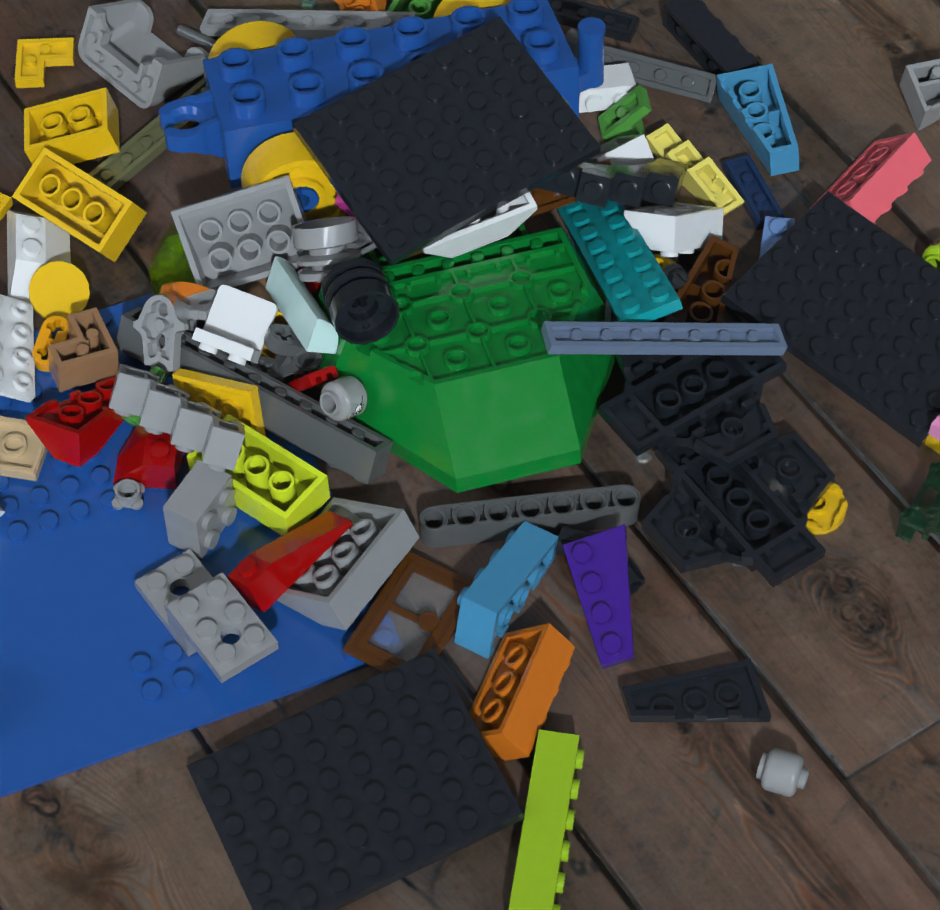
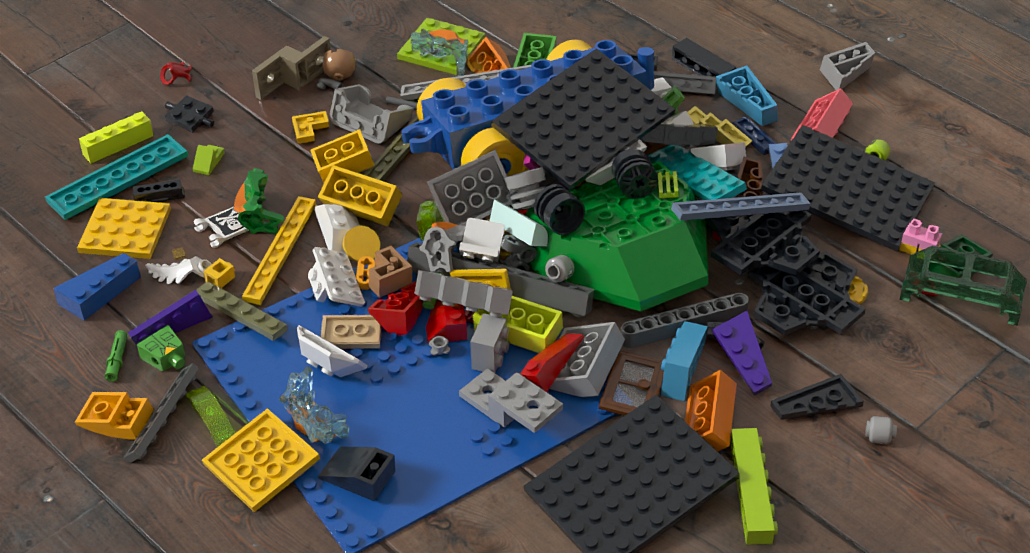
camera: 10 degrees left, 10 degrees down
(314, 379) = (537, 262): red tile -> none
(503, 253) = (634, 173): none -> black wheel
(559, 264) = (667, 177): none -> lime tile

